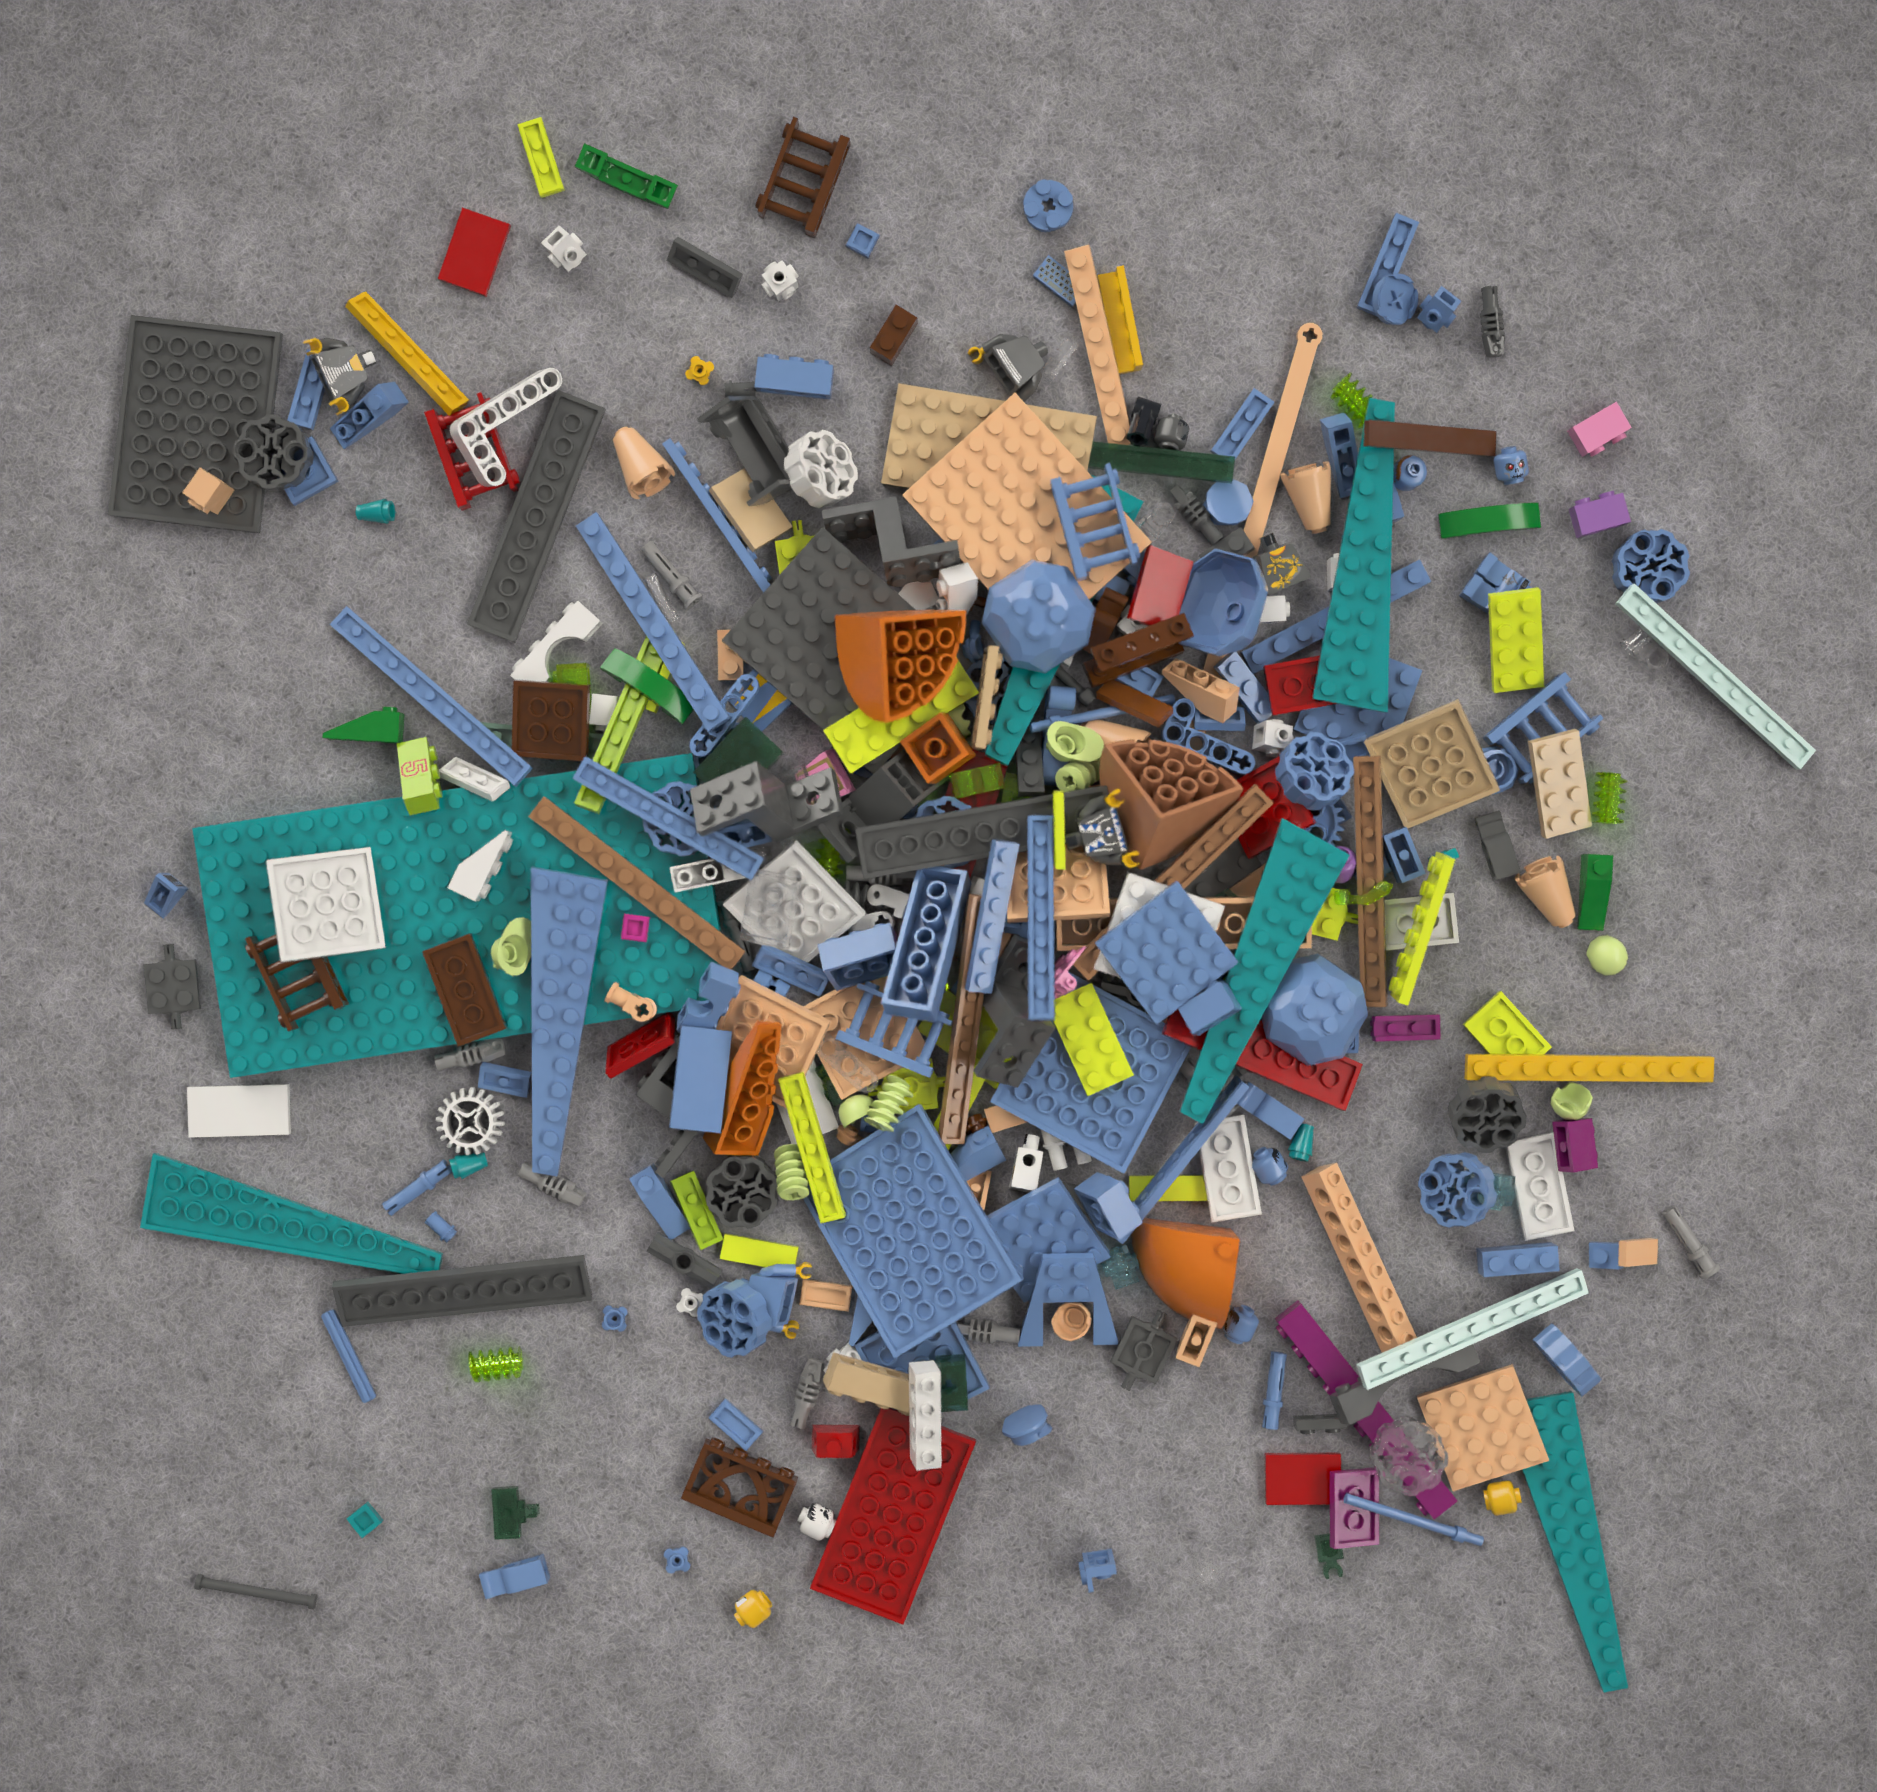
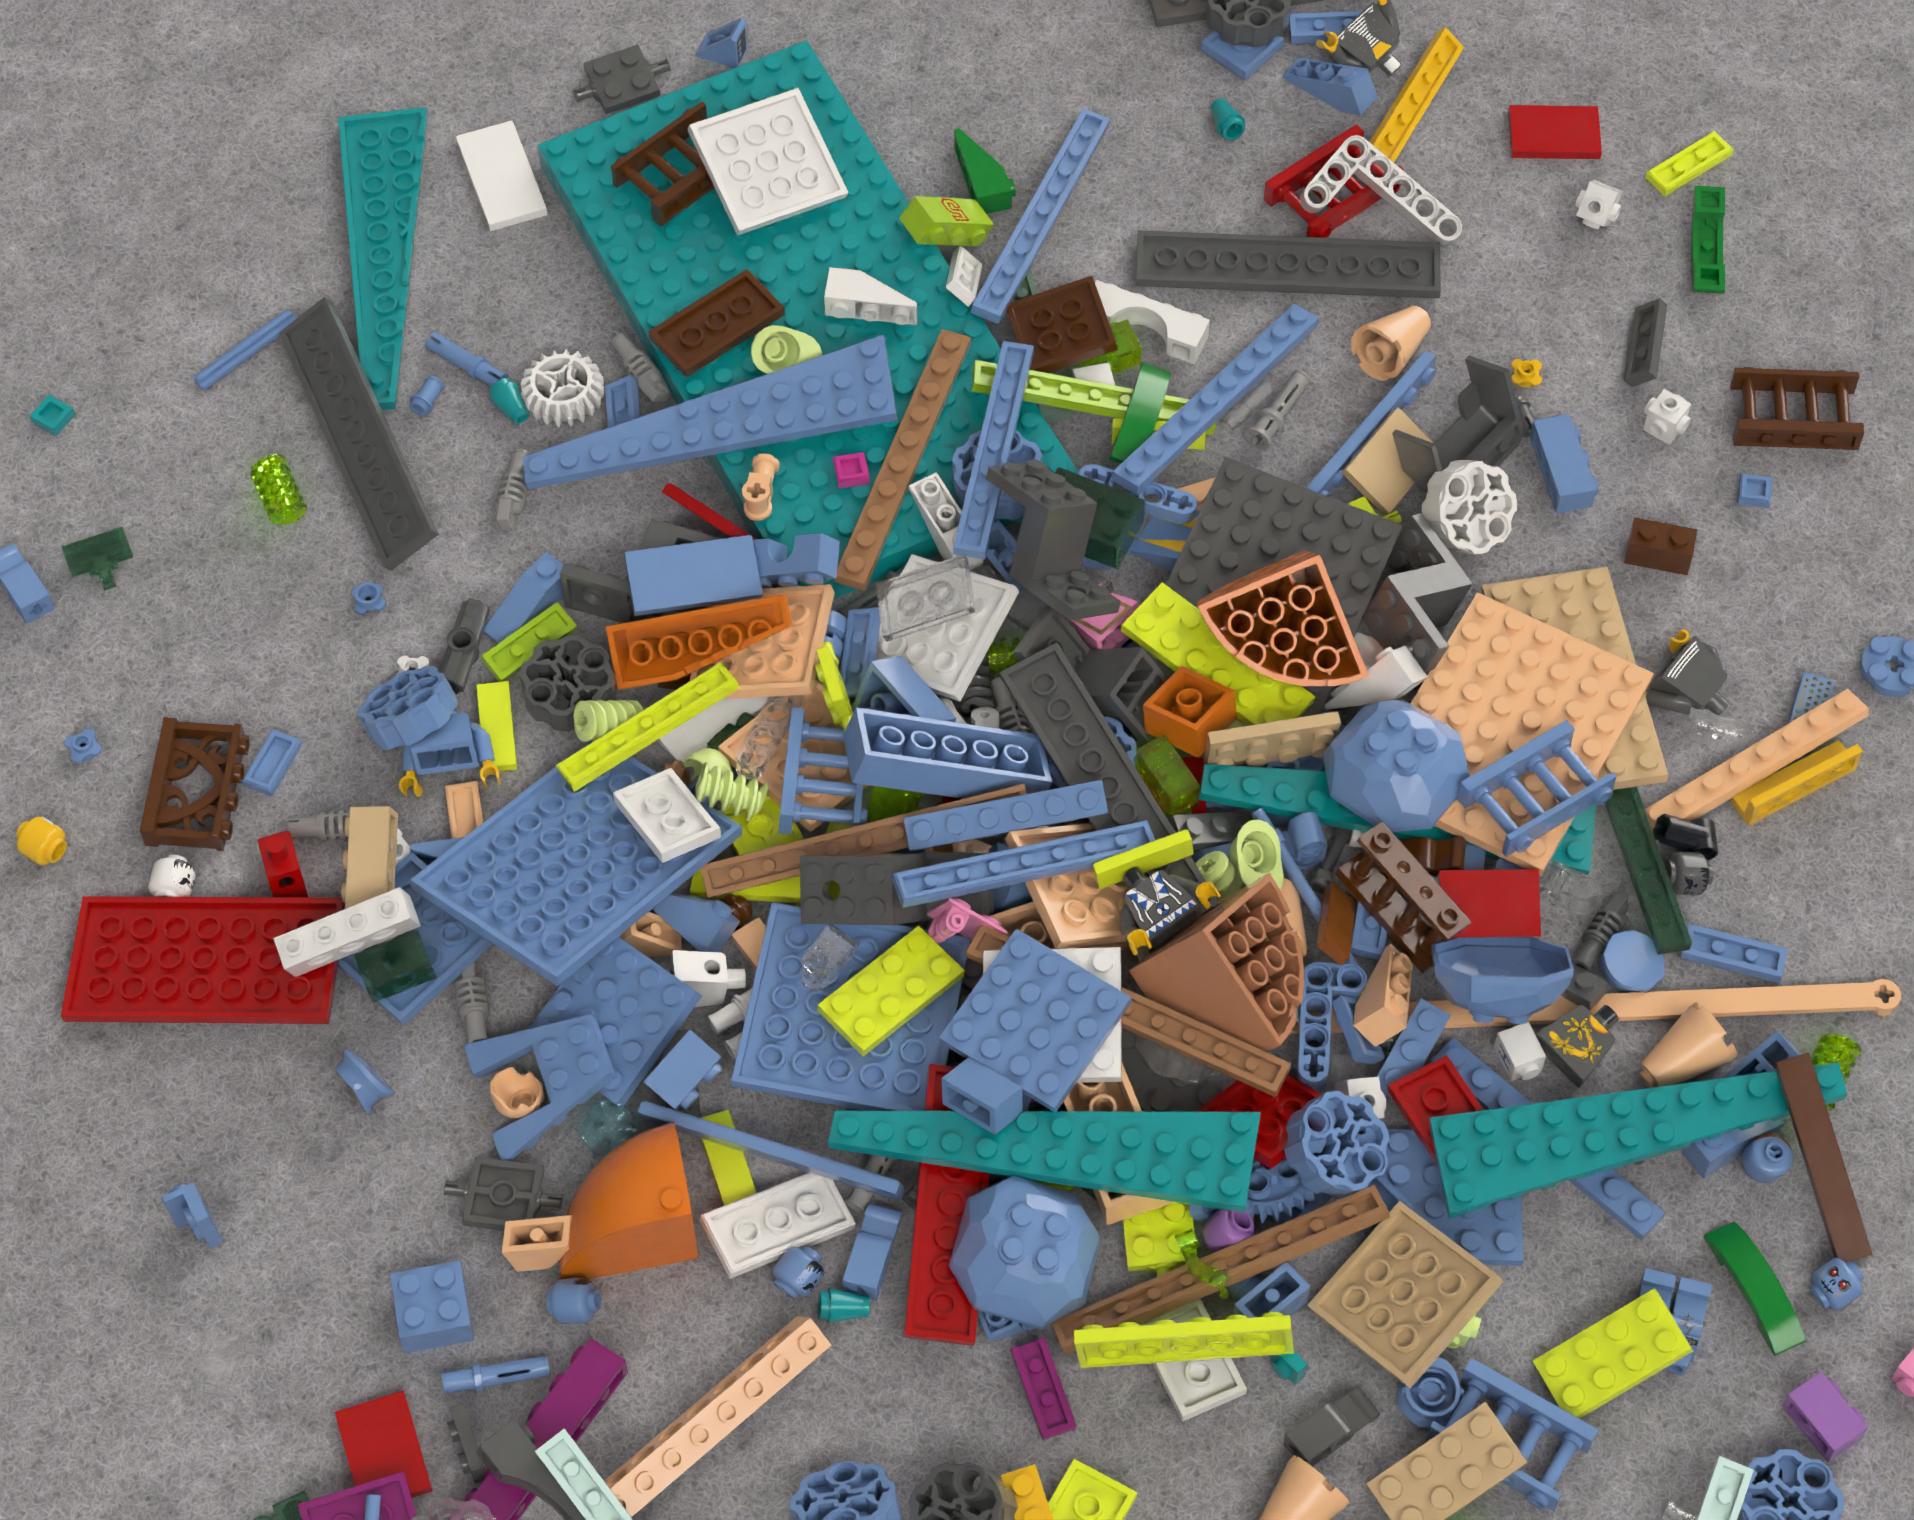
camera: 70 degrees right, 30 degrees down
(822, 1000) = (833, 684): none -> neon yellow plate
(897, 1157) = (666, 815): none -> white plate
(1049, 1073) = (827, 957): none -> clear piece
(1214, 1421) = (432, 1307): none -> medium blue brick

